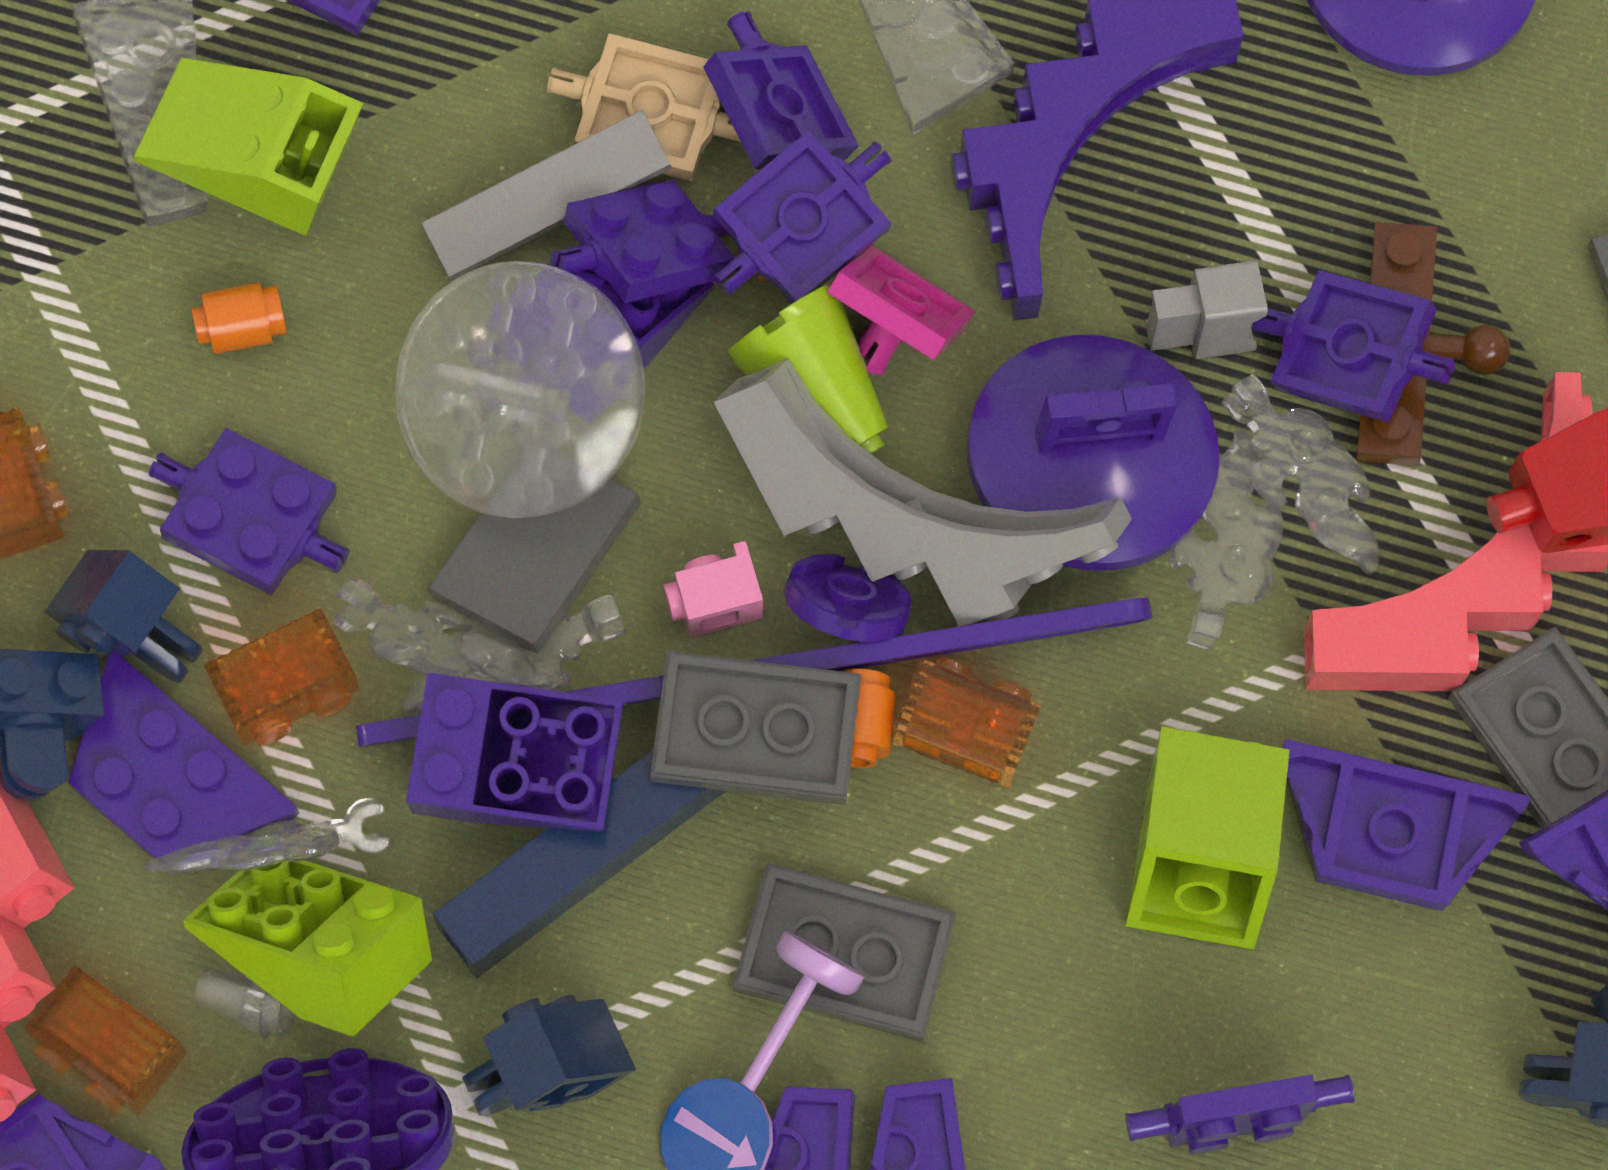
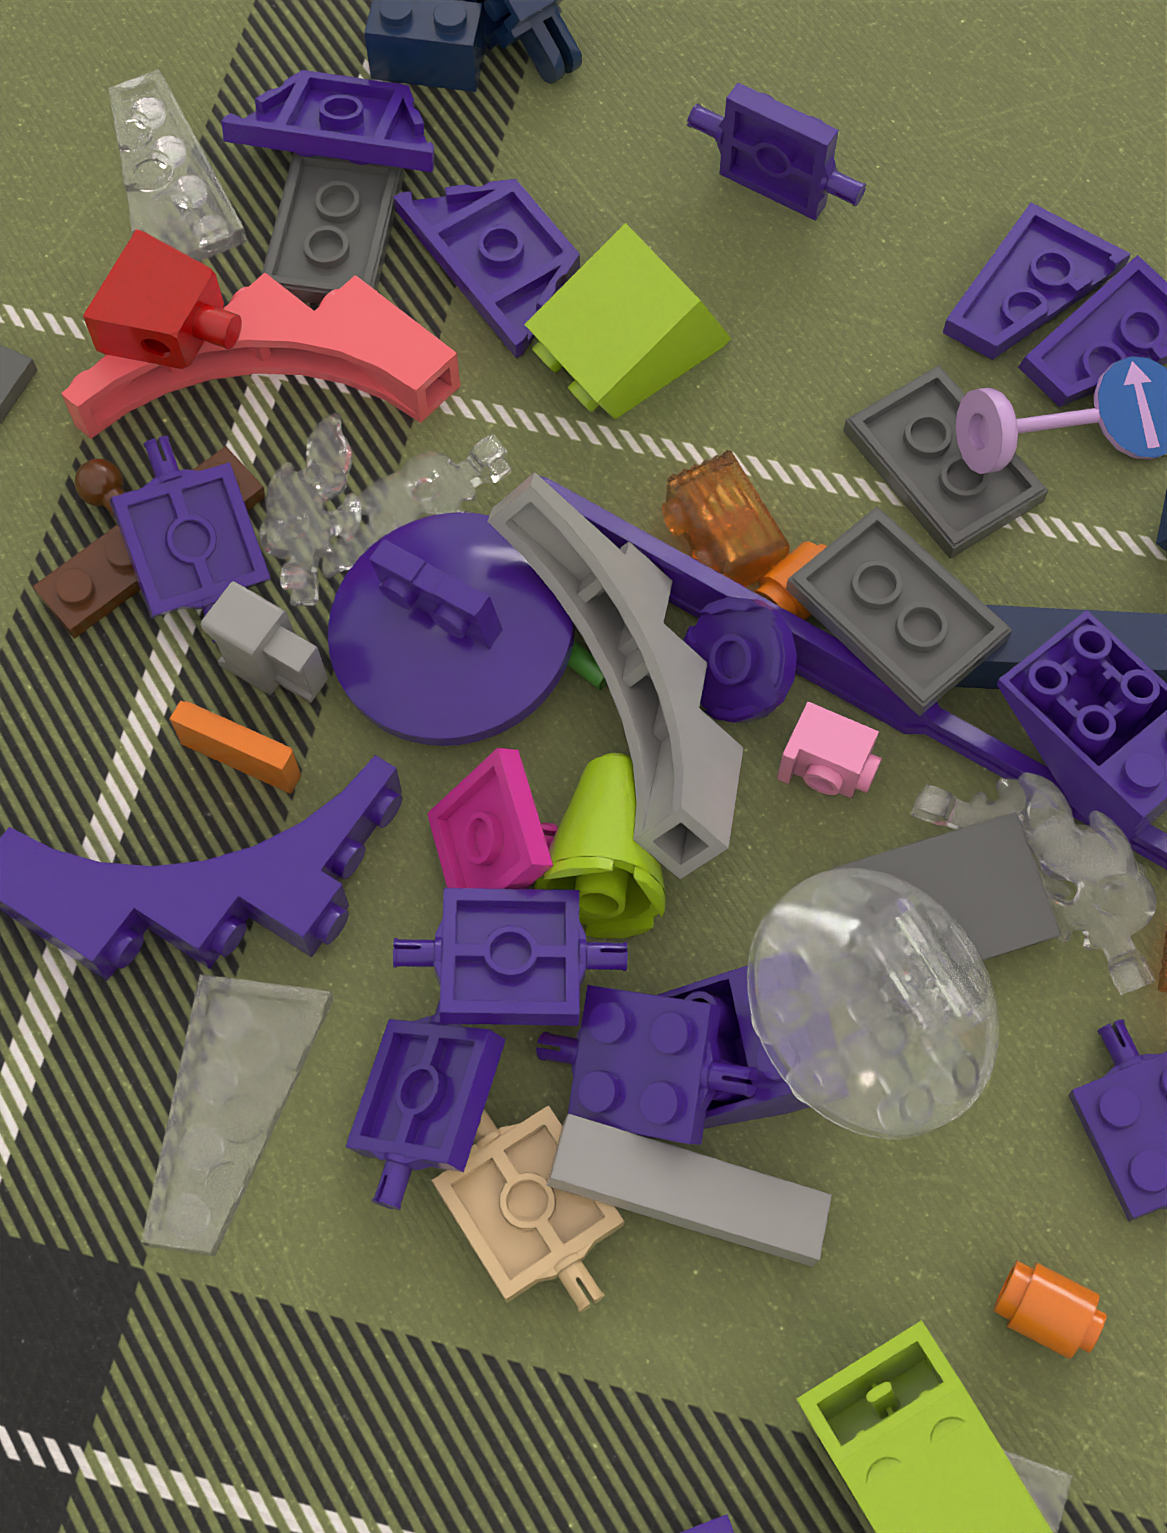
camera: 135 degrees left, 5 degrees down
(1157, 235) = (236, 746): none -> orange tile

